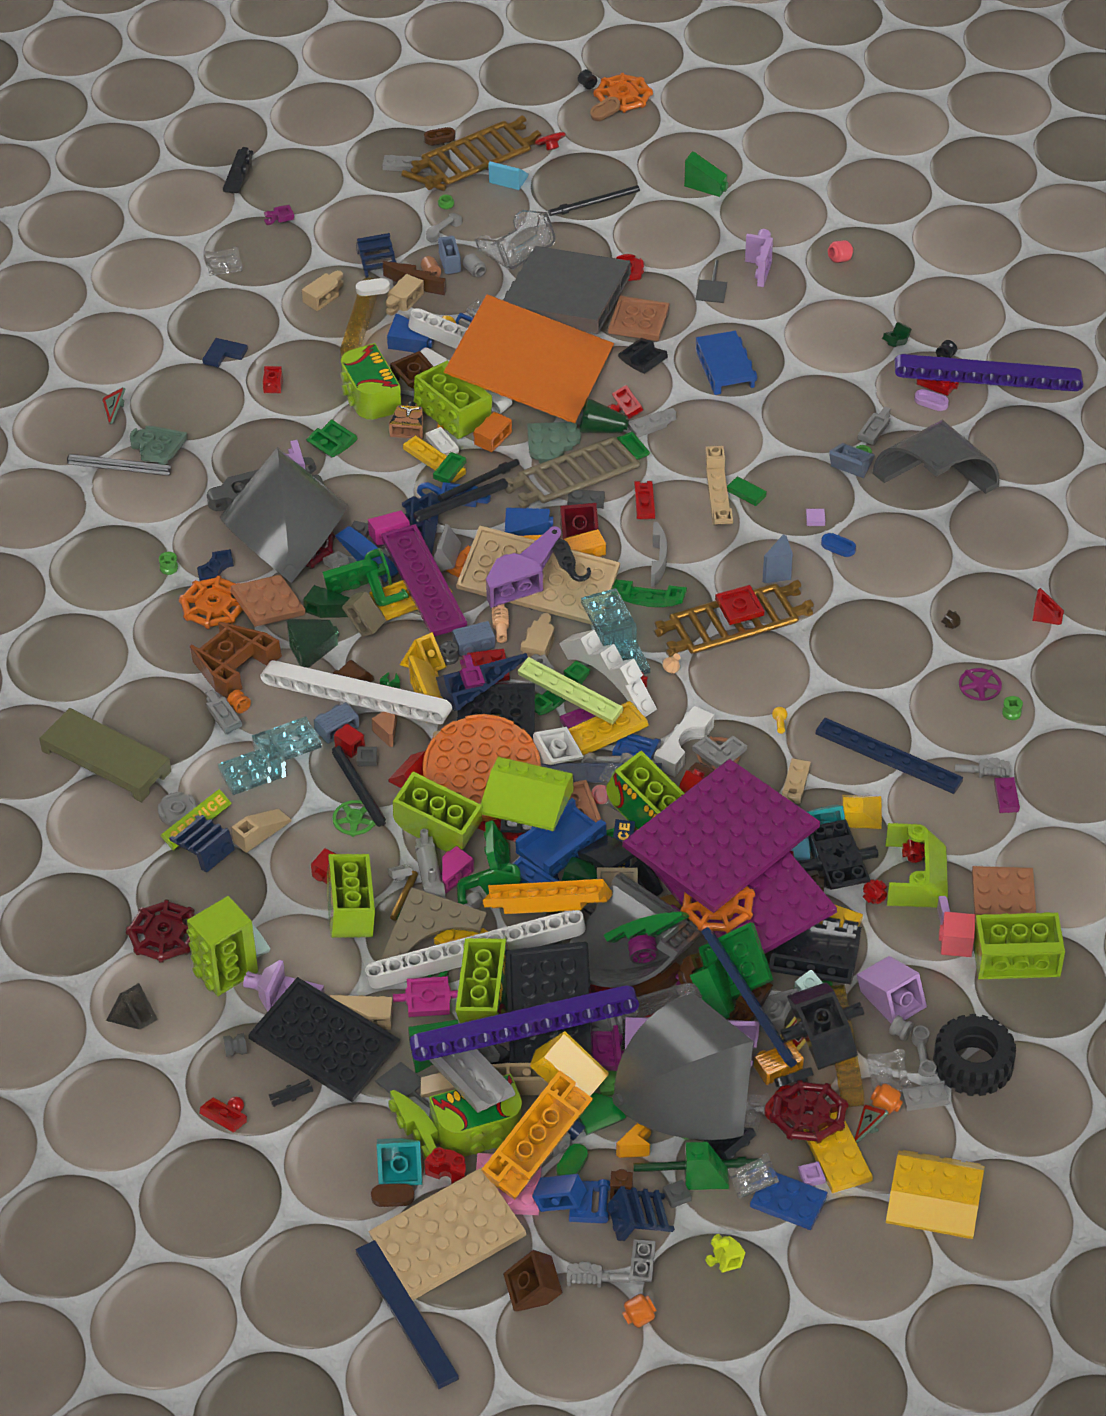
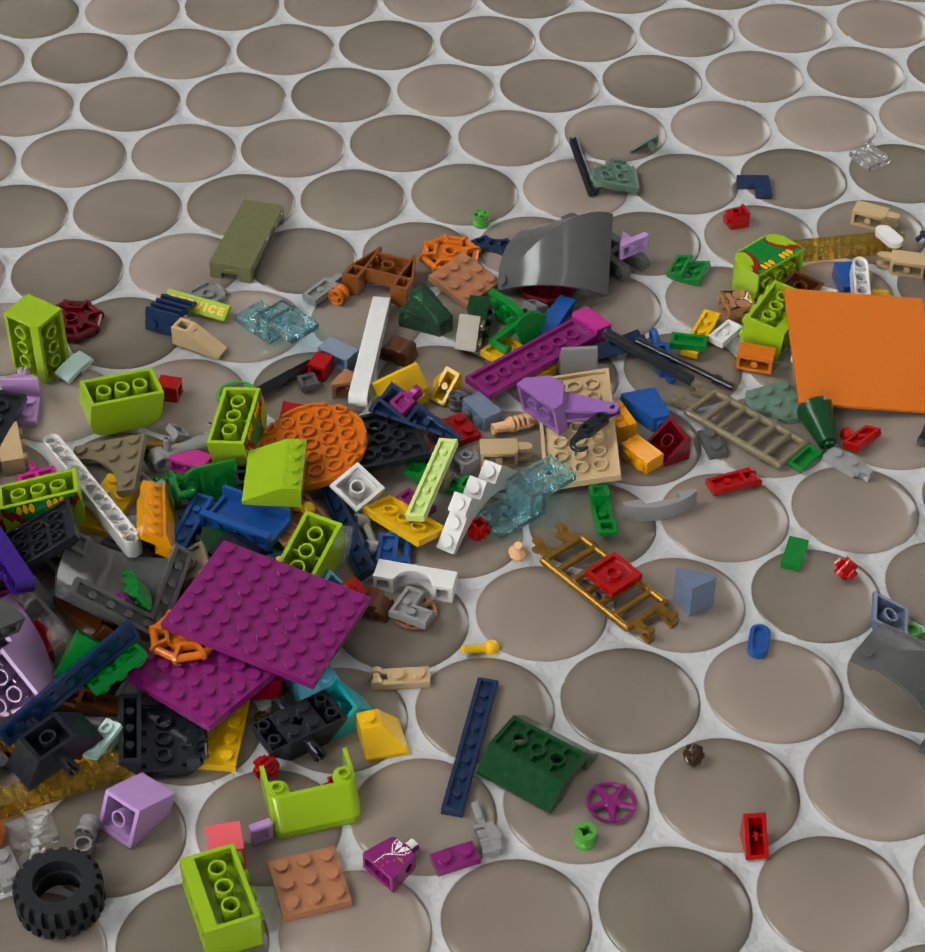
camera: 70 degrees right, 5 degrees down
(717, 485) = (815, 516): tan slope -> none
(783, 463) = (846, 568): none -> red gear
(815, 517) = (788, 614): lavender tile -> none
(936, 720) = (528, 767): none -> dark green slope
(1003, 832) = (391, 861): none -> magenta torso

